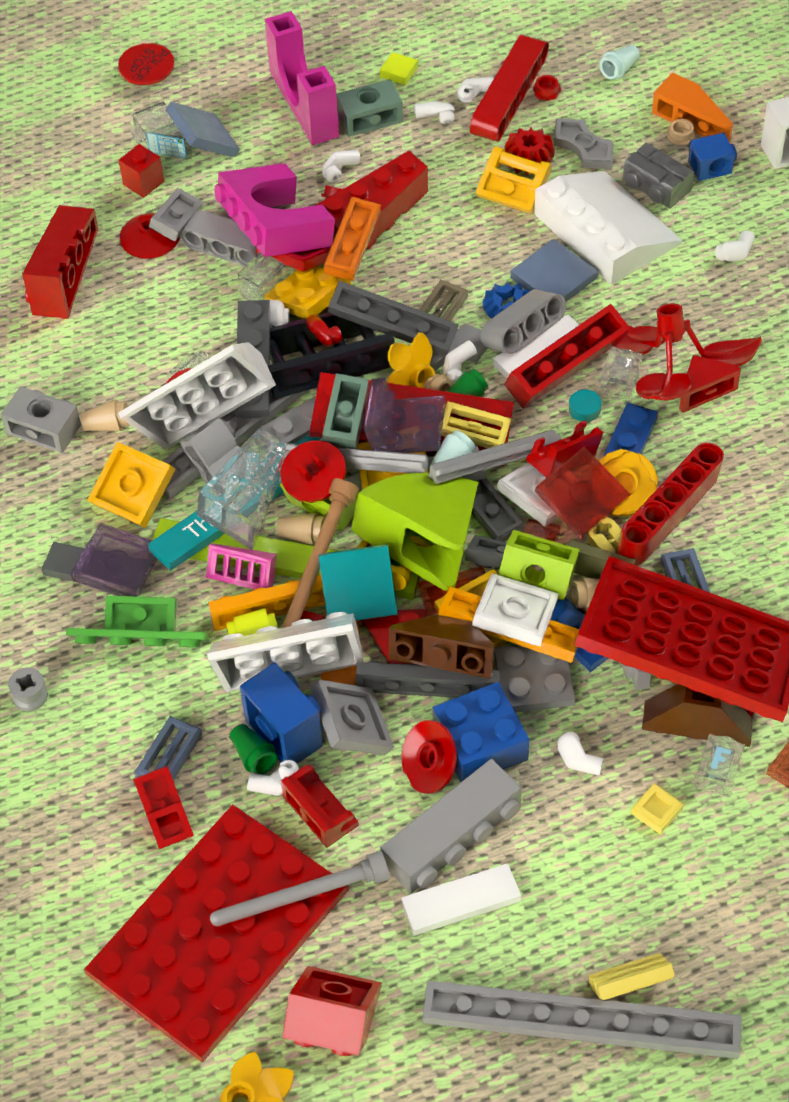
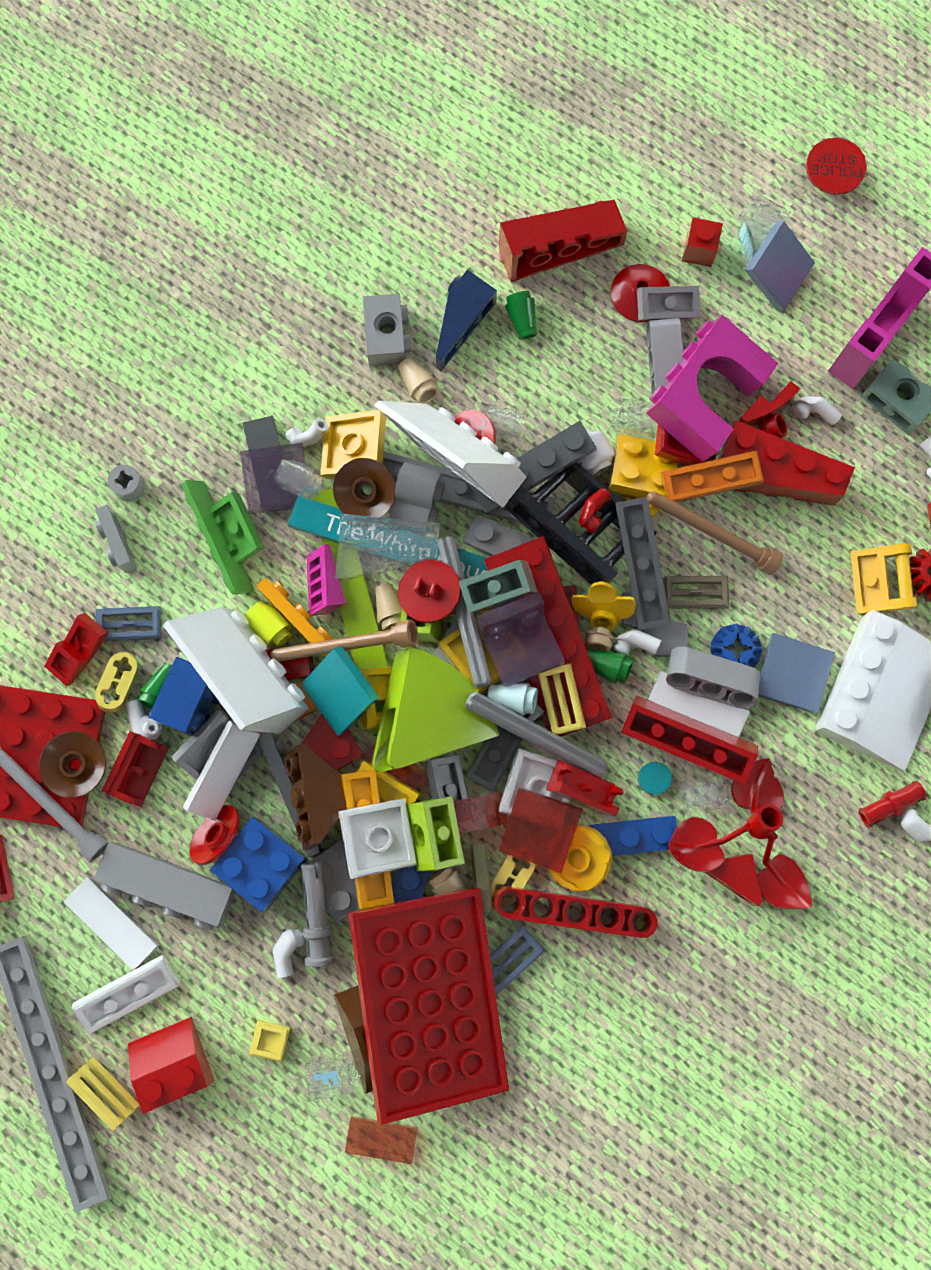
camera: 60 degrees right, 25 degrees up
(71, 358) = (465, 308): none -> dark blue slope
(89, 721) = (109, 528): none -> light grey plate
(97, 515) = (309, 437): none -> white arm
(105, 317) = (522, 313): none -> green cone
(134, 531) = (299, 478): none -> clear brick
(176, 469) = (349, 488): none -> reddish brown dish
(226, 779) = (110, 679): none -> light yellow beam
(280, 828) = (57, 760): none -> reddish brown dish
(314, 188) = (763, 408): none -> red slope
(370, 718) = (221, 771): none -> white tile
(444, 247) = (766, 559): none -> medium nougat piece
(541, 914) = (125, 994): none -> white tile
(573, 712) = (316, 929): none -> light grey pin
(634, 902) = (168, 1065): none -> red slope
(705, 257) = (892, 804): none -> red pin

